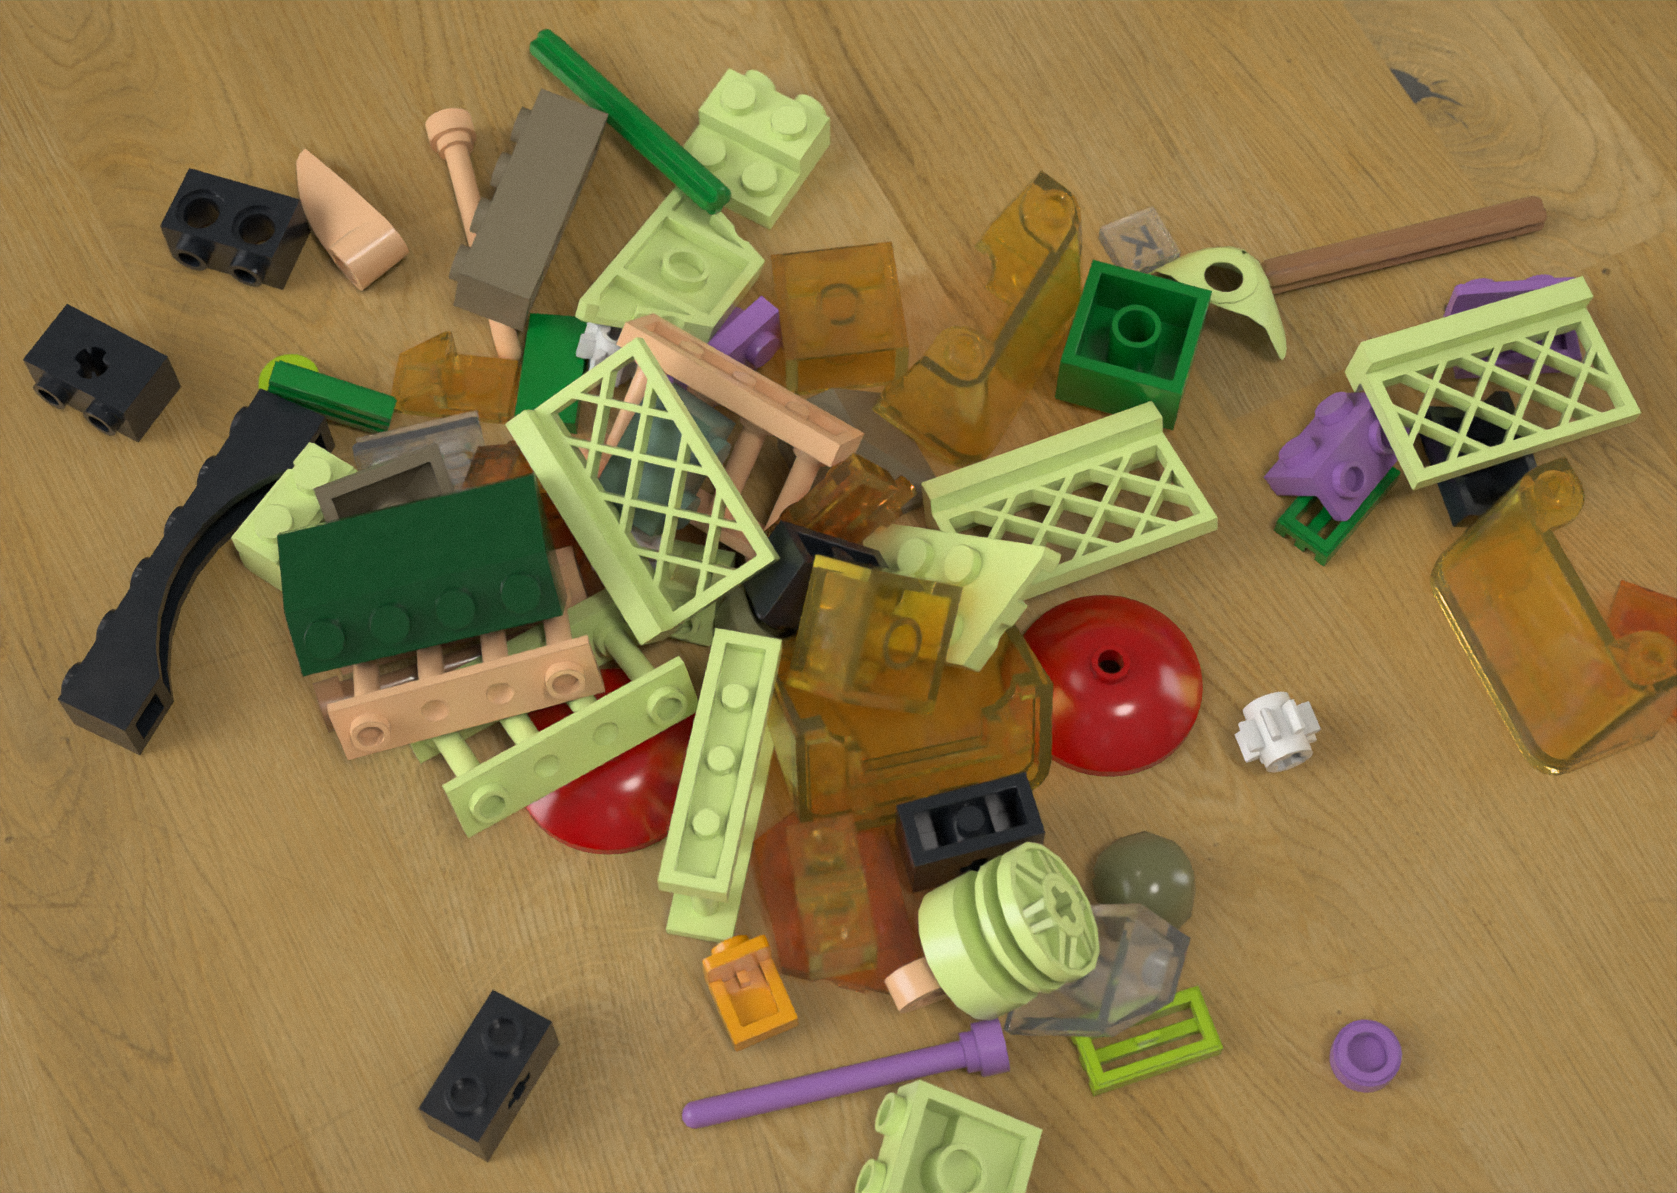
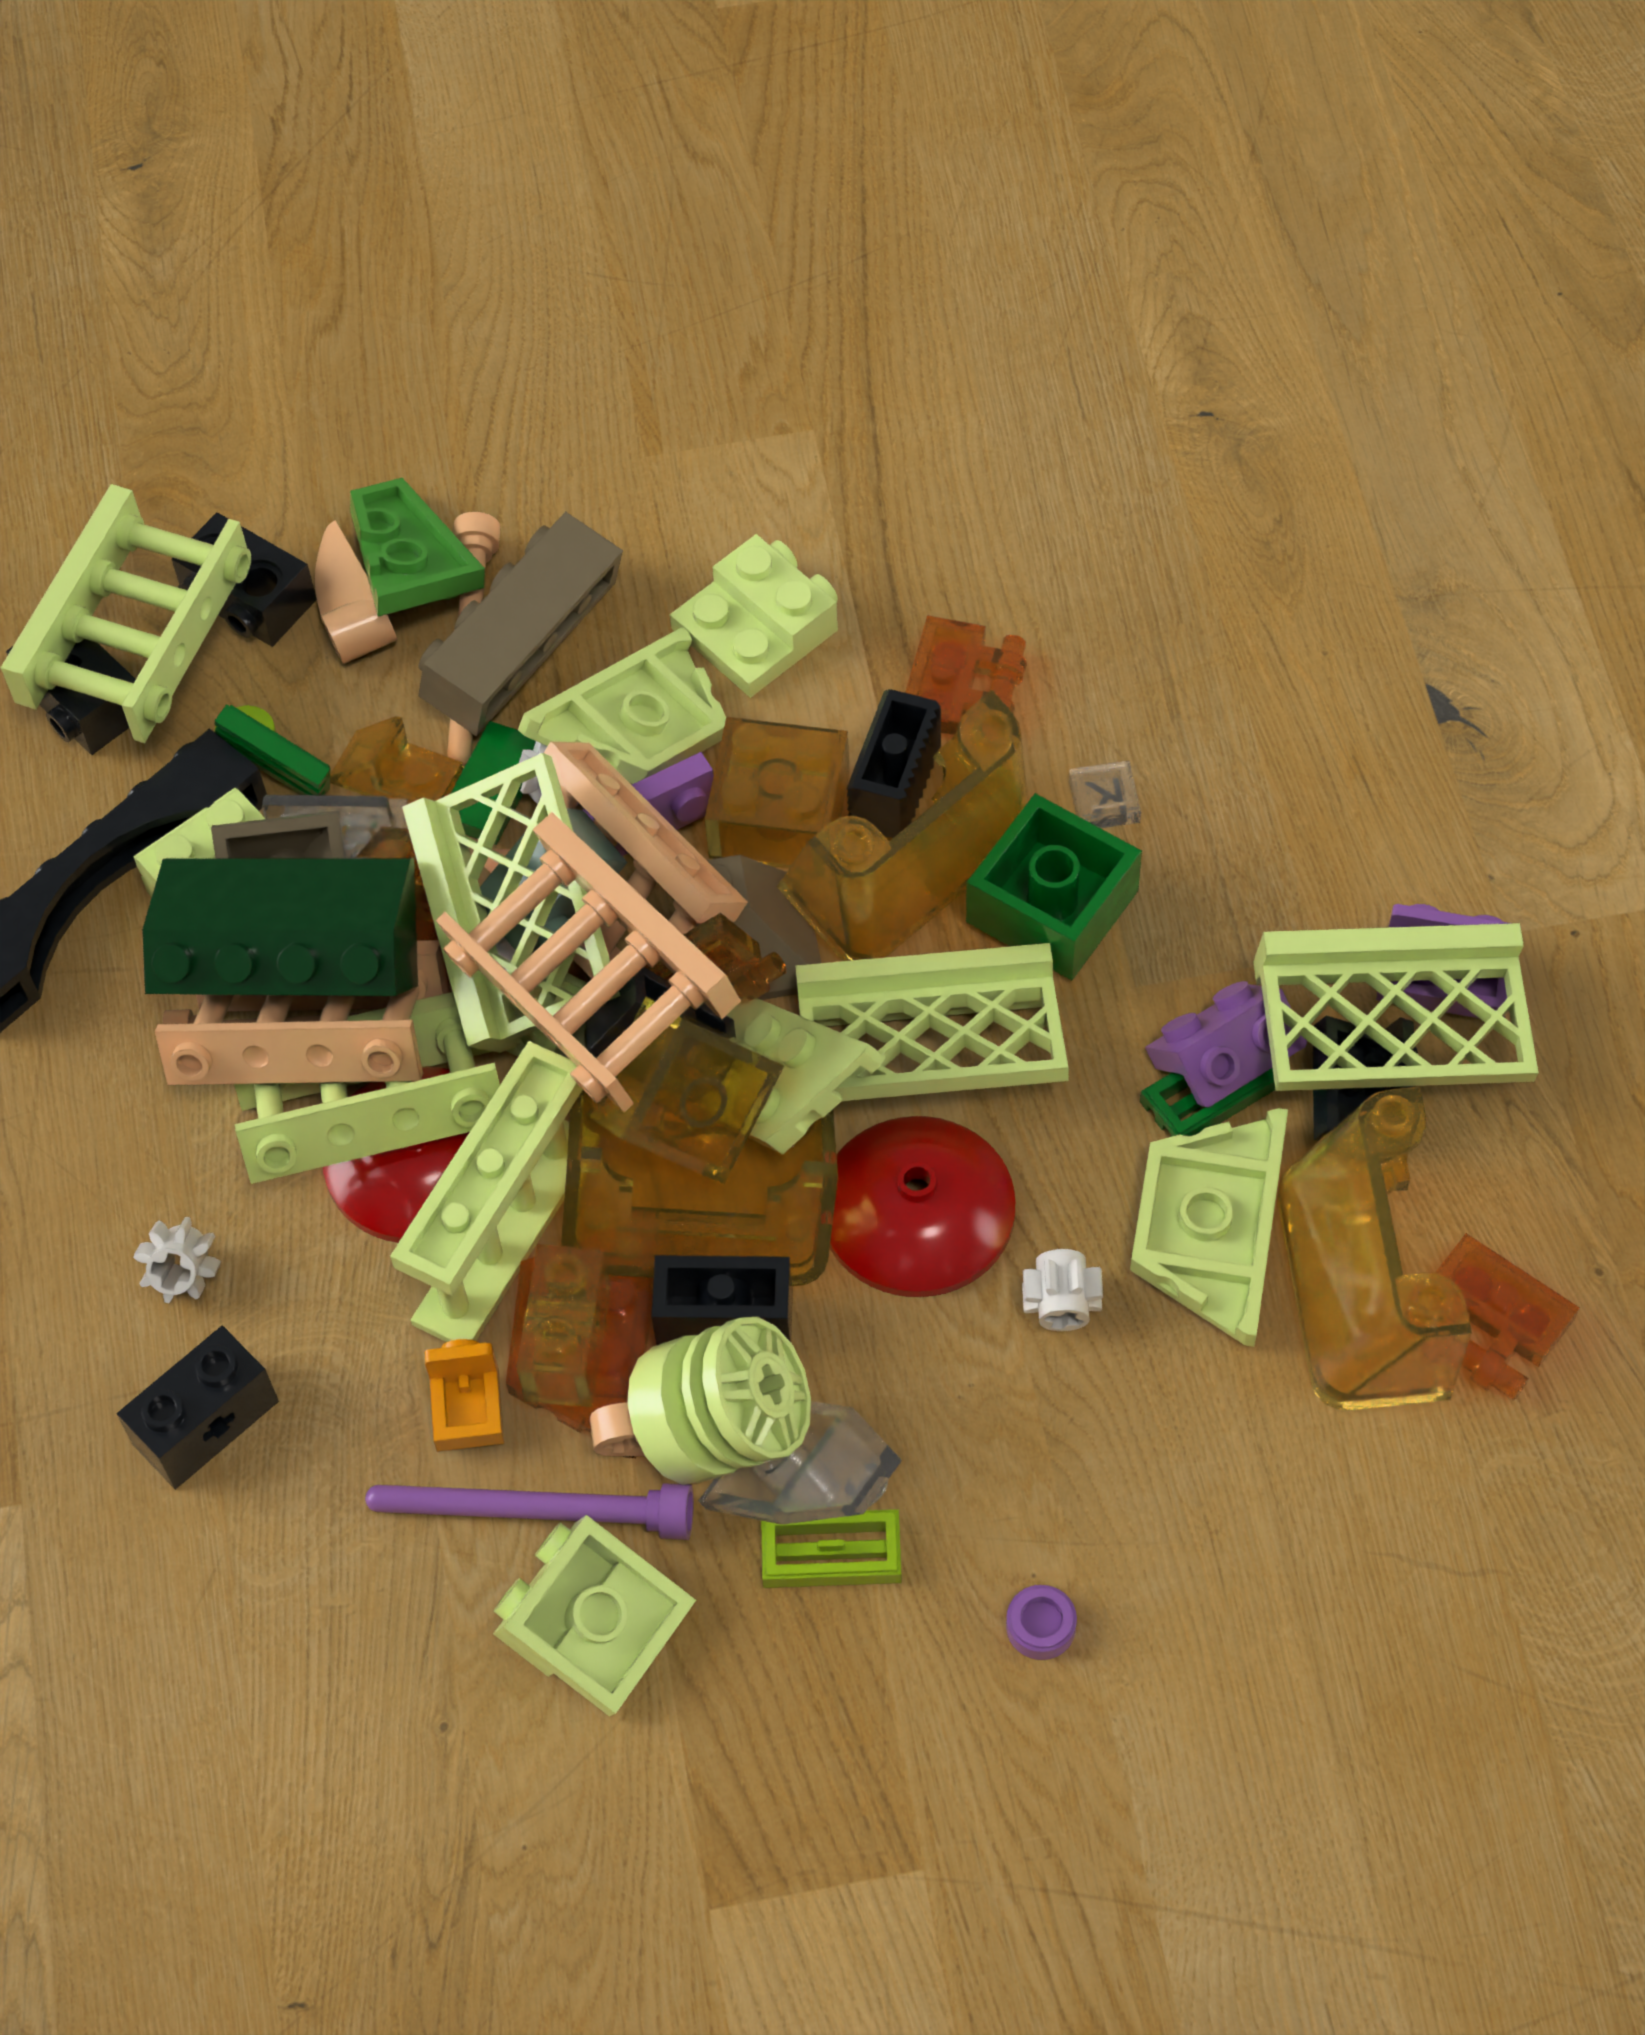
camera: 20 degrees right, 5 degrees down
(91, 260) = (94, 573): none -> yellowish green fence
(393, 161) = (409, 549): none -> bright green wing
(419, 950) = (160, 1258): none -> white gear
(631, 122) = (646, 564): green axle -> none
(757, 469) = (607, 900): none -> light nougat fence
(942, 261) = (895, 761): none -> black brick
(951, 163) = (948, 663): none -> clear orange plate
(1149, 873) = (889, 1395): olive hair -> none
(1251, 299) = (1190, 871): yellowish green piece -> none
(1386, 628) = (1211, 1220): none -> yellowish green wing
(1404, 244) = (1371, 857): medium nougat axle -> none

